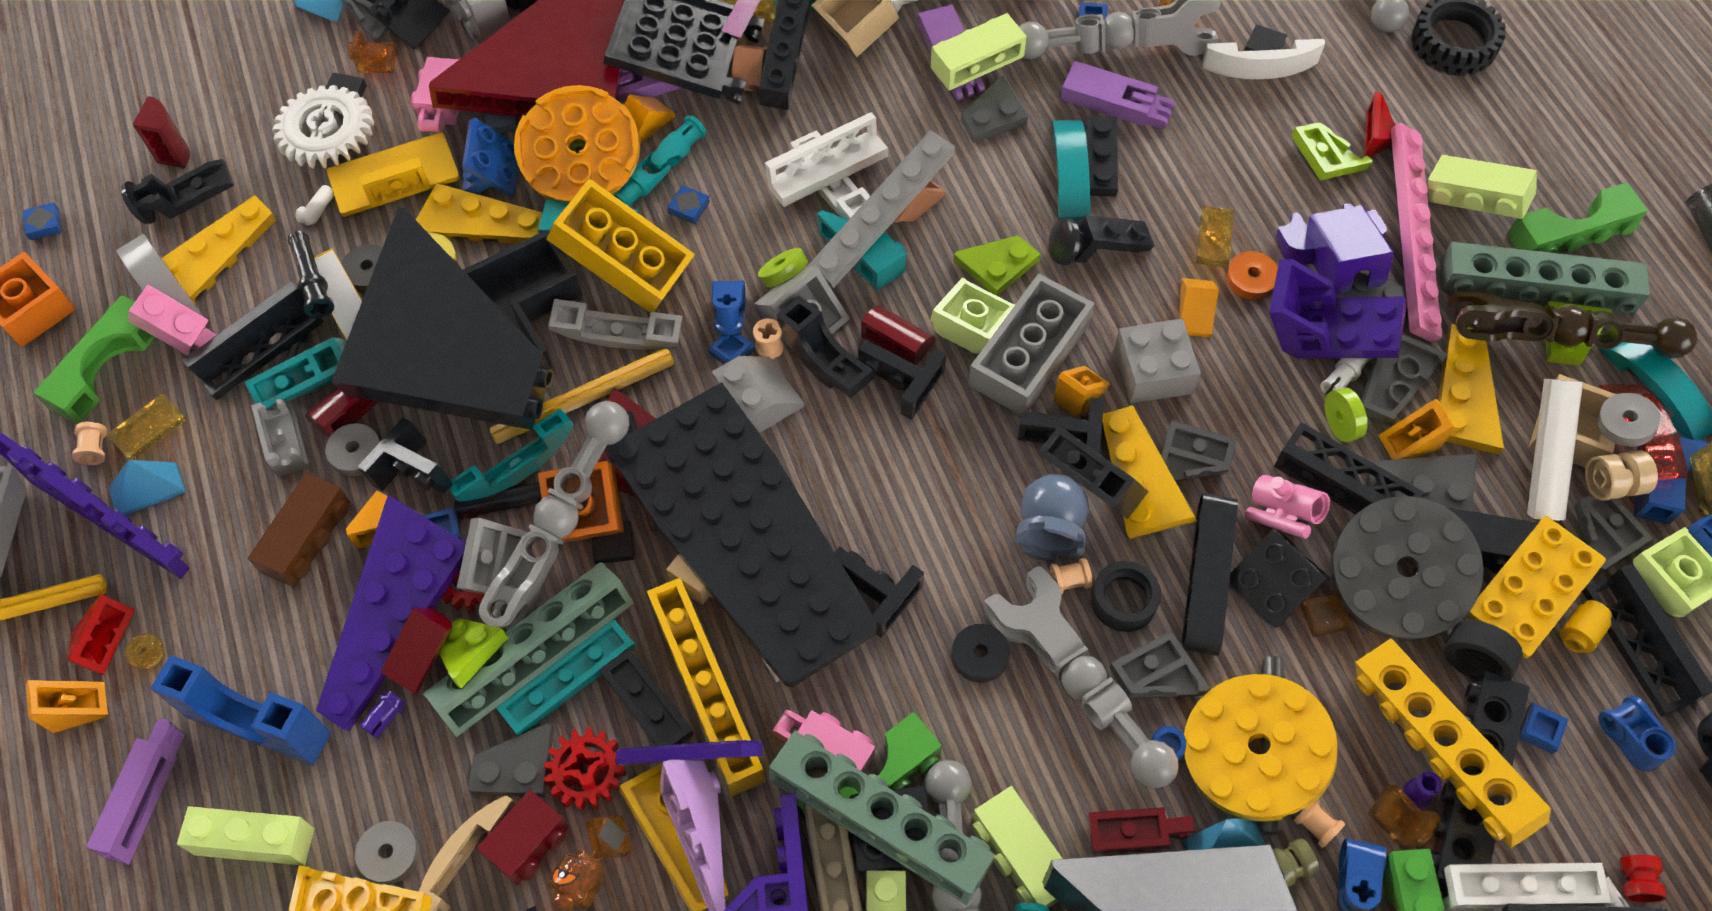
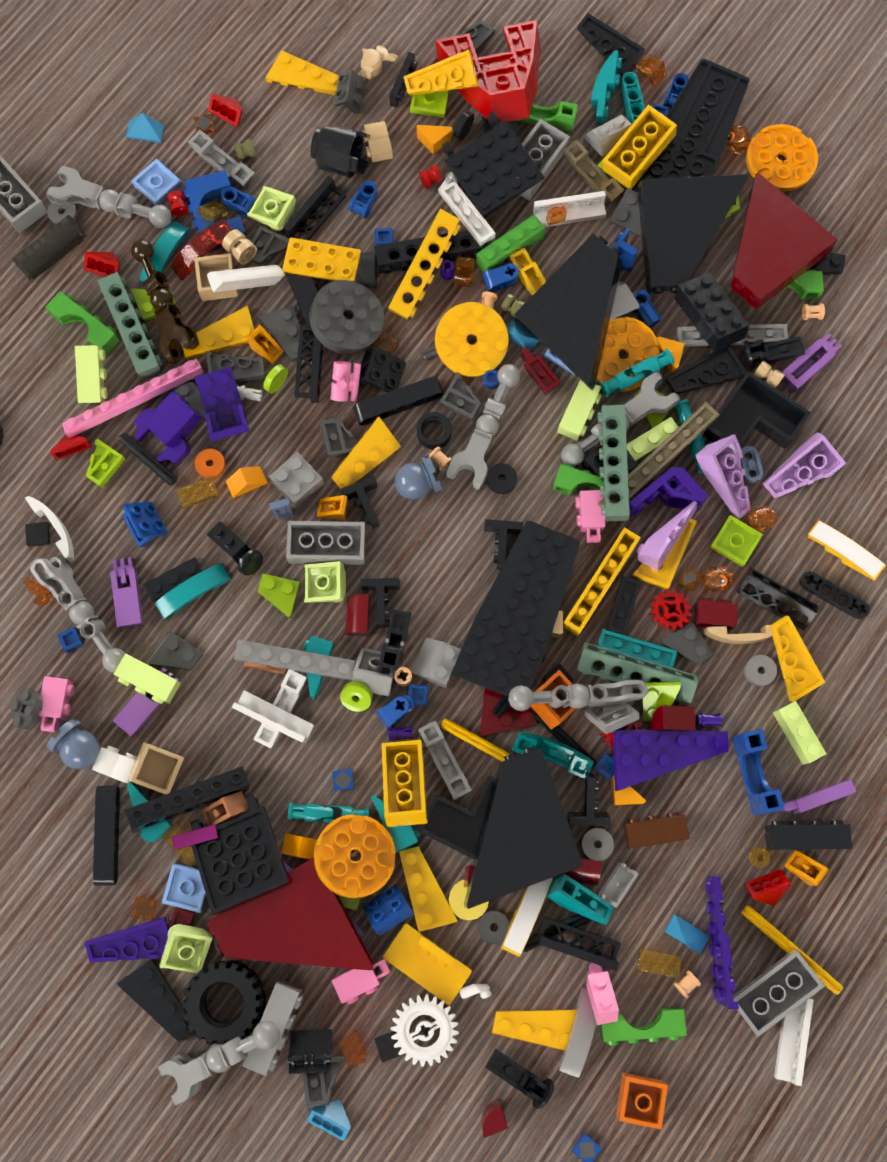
camera: 125 degrees left, 15 degrees up
(99, 742) = (808, 836): none -> black brick
(311, 283) = (534, 932): black pin -> none
(692, 751) = (640, 560): dark purple tile -> none
(695, 296) = (400, 733): none -> dark purple pin
(1093, 472) = (385, 471): black slope -> none
(1122, 311) = (281, 509): none -> sand blue plate
(1208, 151) = (143, 522): none -> blue bracket
(1305, 205) = (147, 459): none -> black axle
(1586, 627) = (325, 235): yellow brick -> none
(1628, 405) = (206, 243): light grey piece -> none
(1679, 295) = (101, 263): none -> red slope

